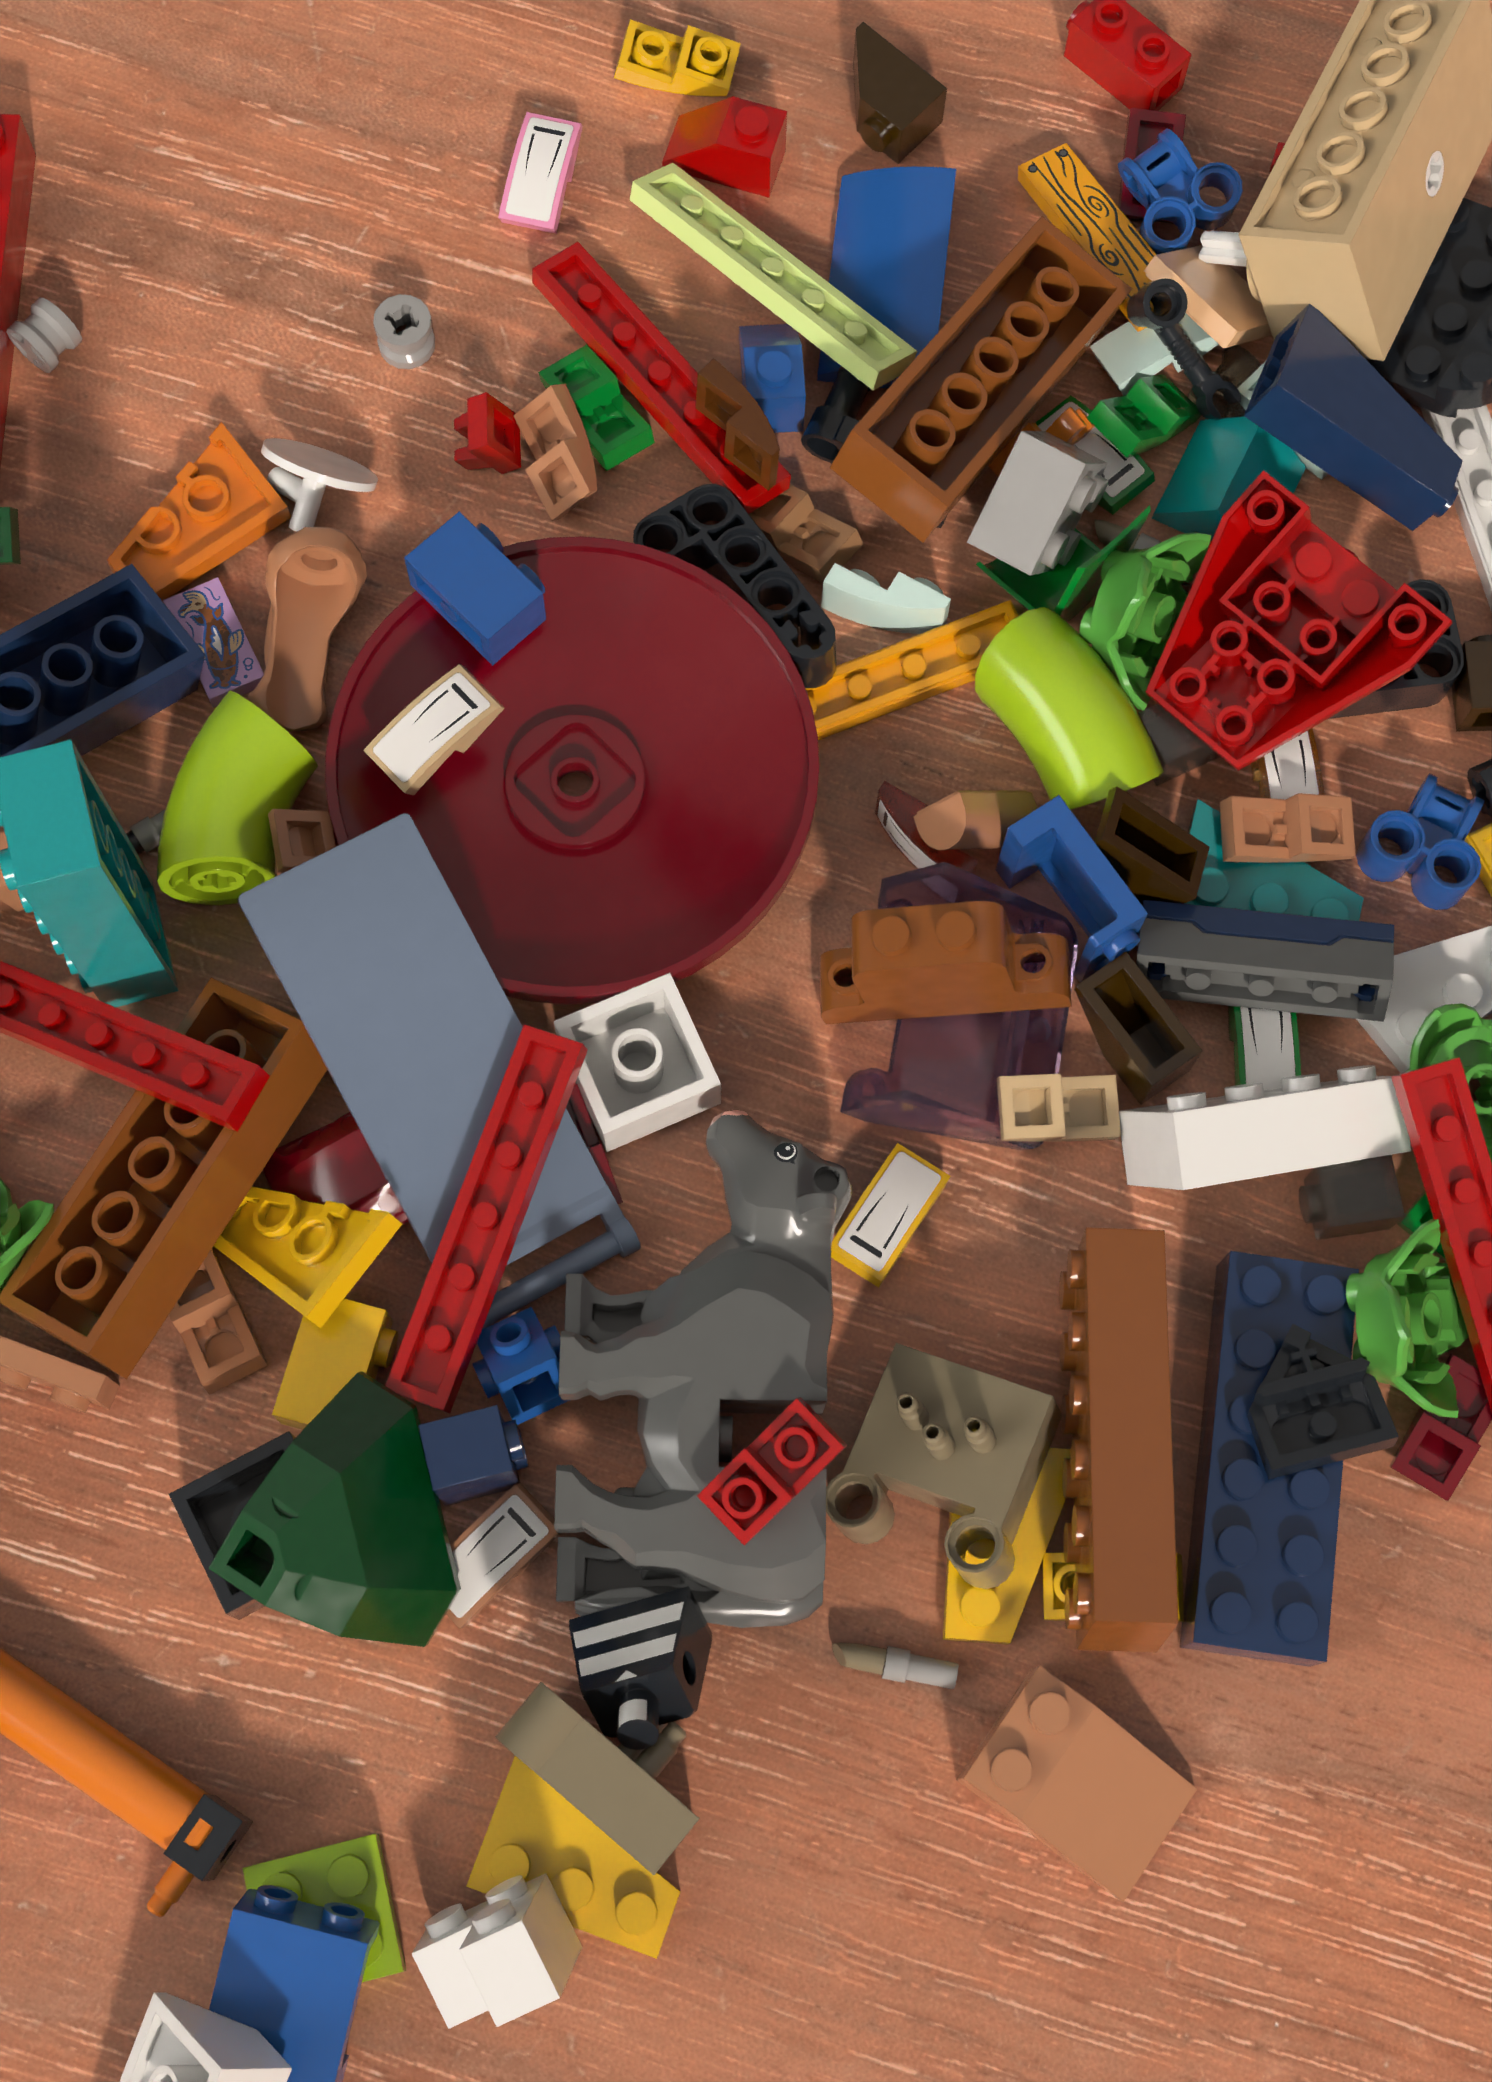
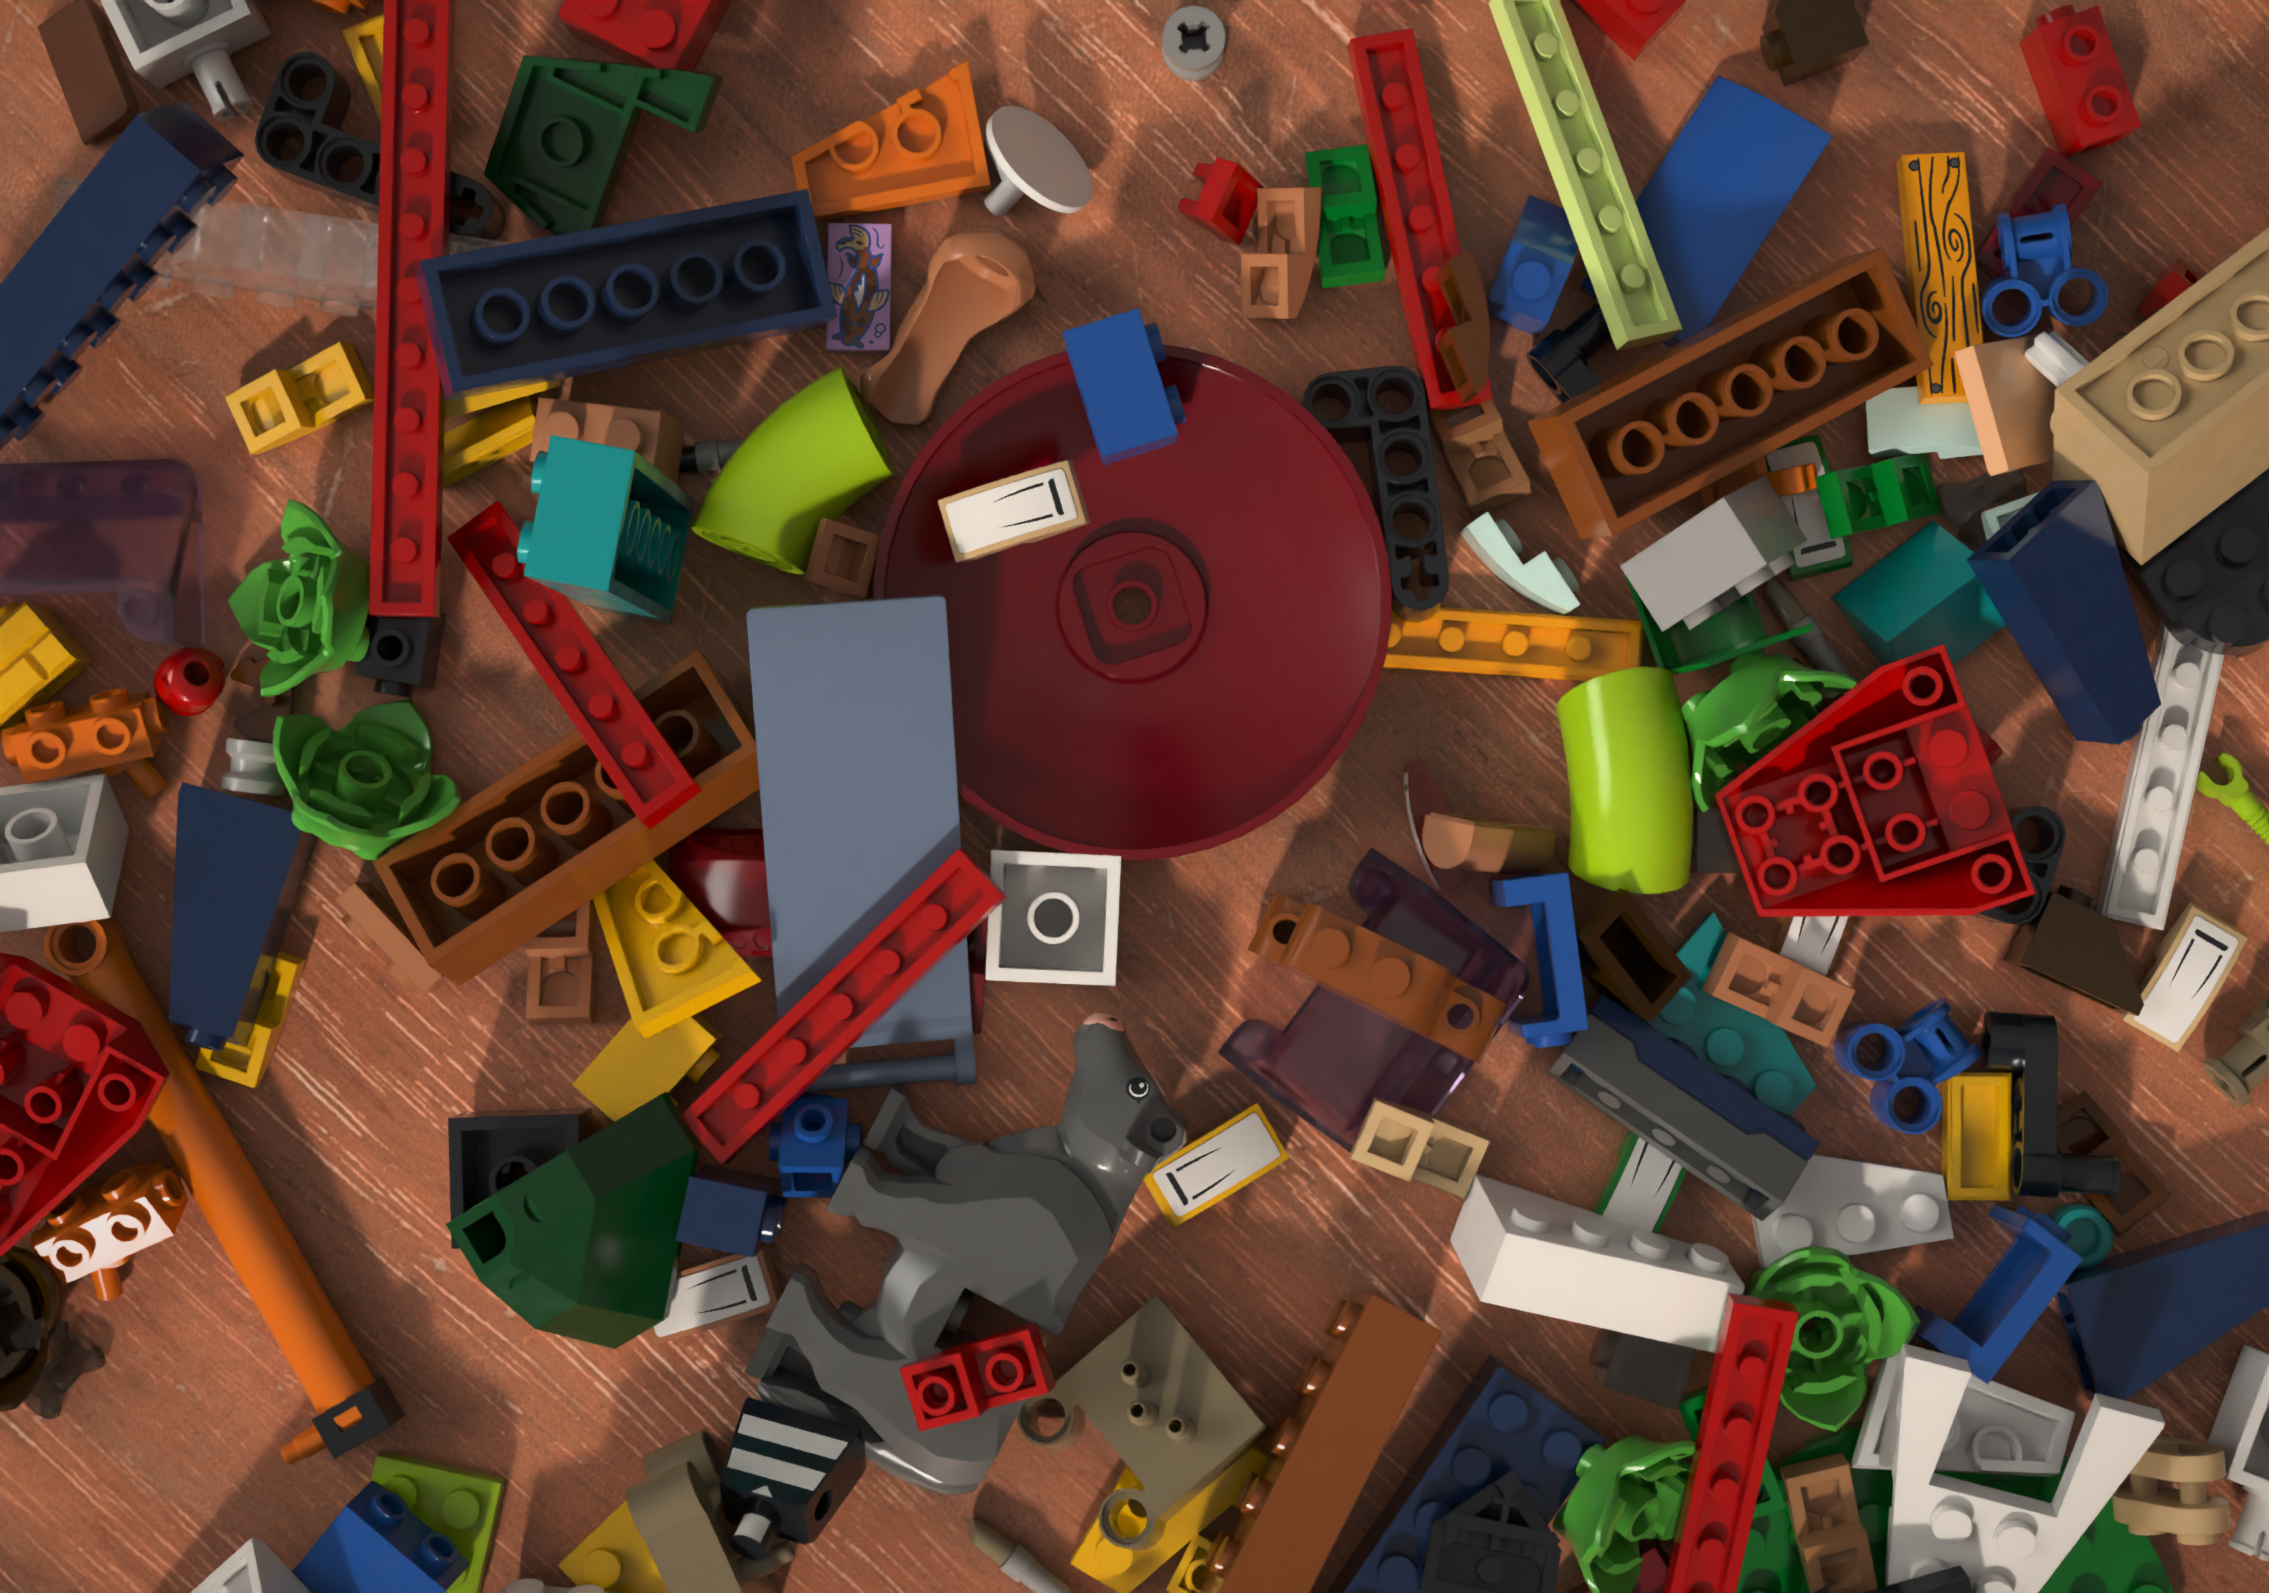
camera: 25 degrees right, 15 degrees up
(1136, 1028) = (1529, 1115): dark brown slope -> none
(1169, 309) = (1946, 421): black brick -> none

